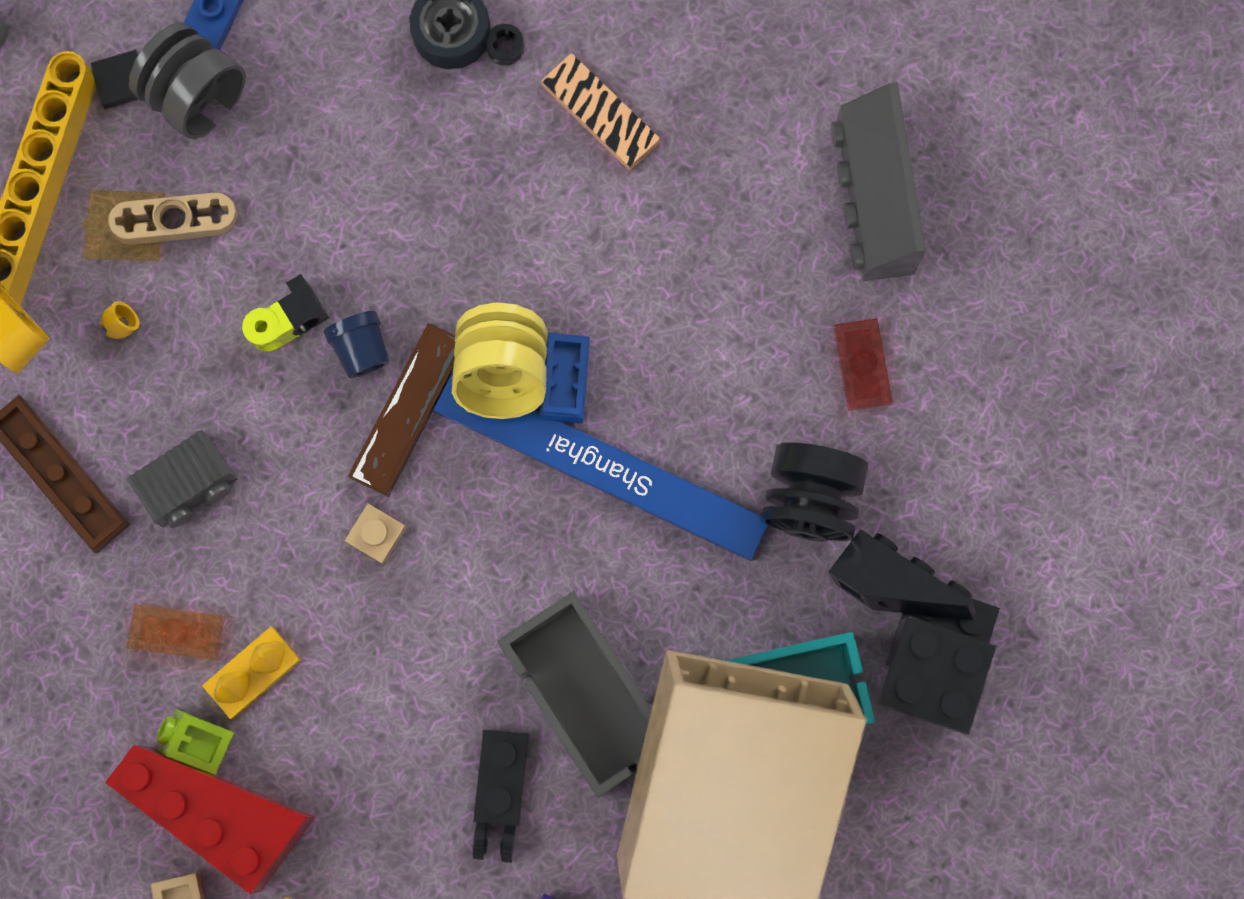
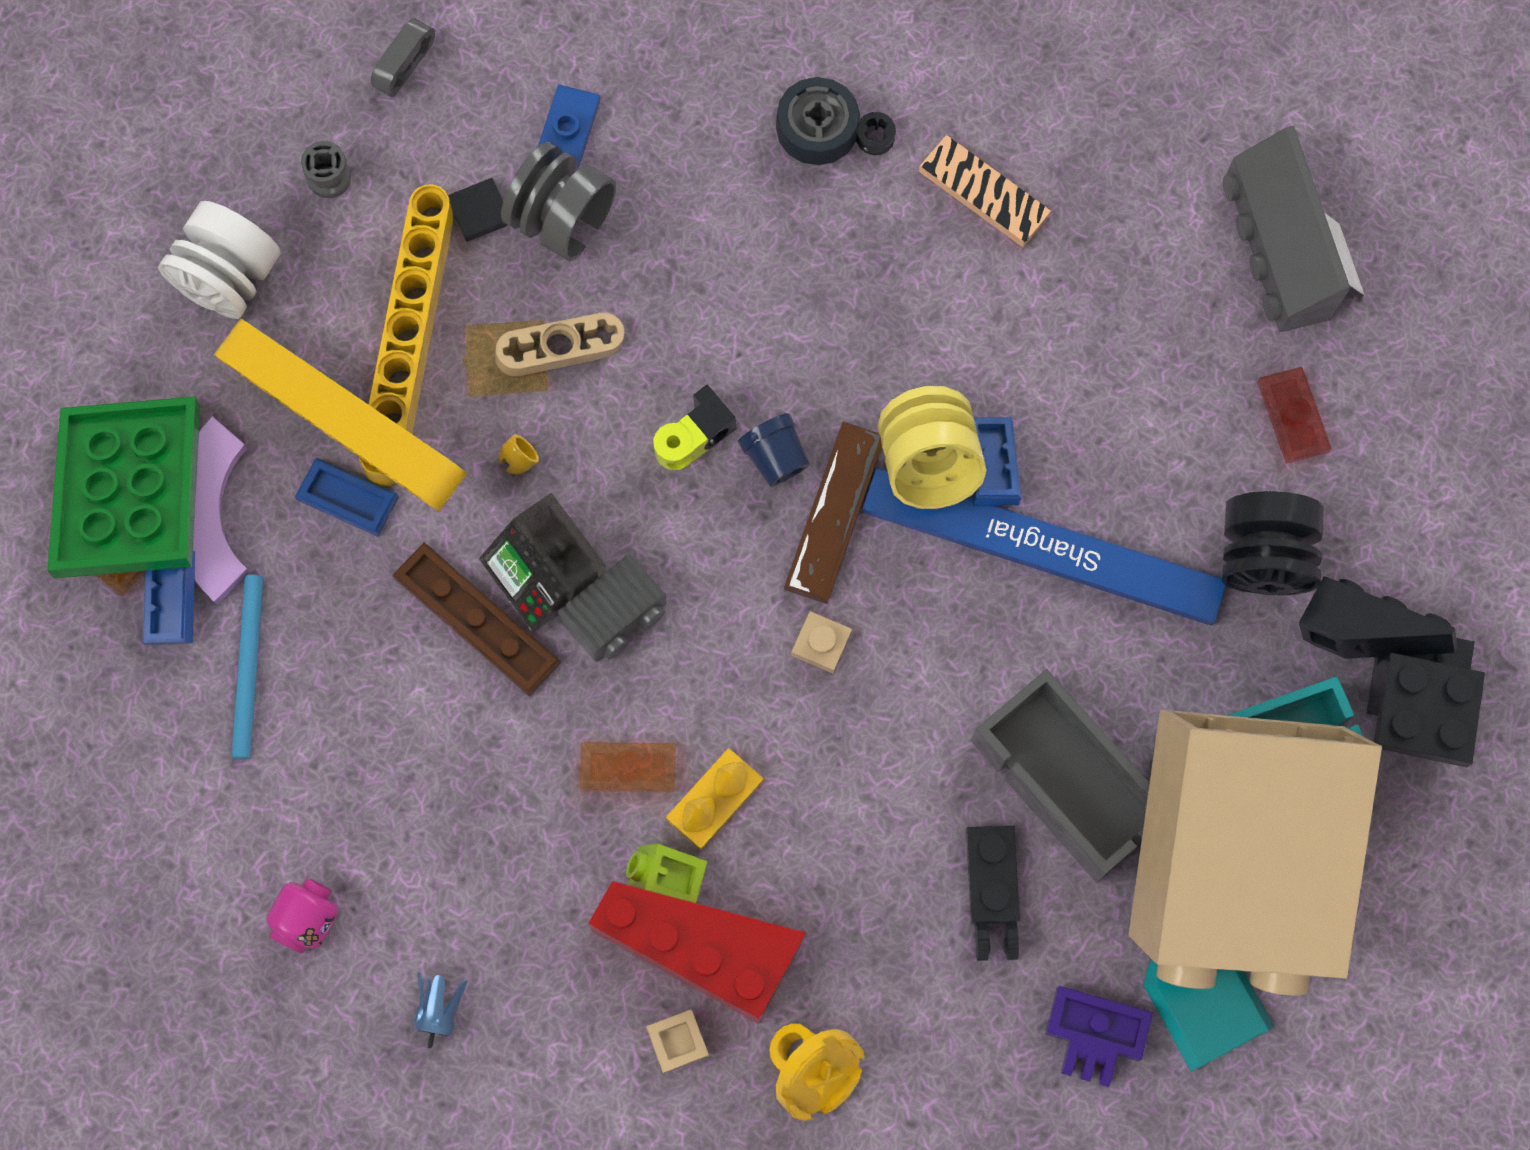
camera: 15 degrees left, 5 degrees down
(122, 426) = (542, 562): none -> clear smoke slope
(931, 210) = (1344, 254): none -> white sticker

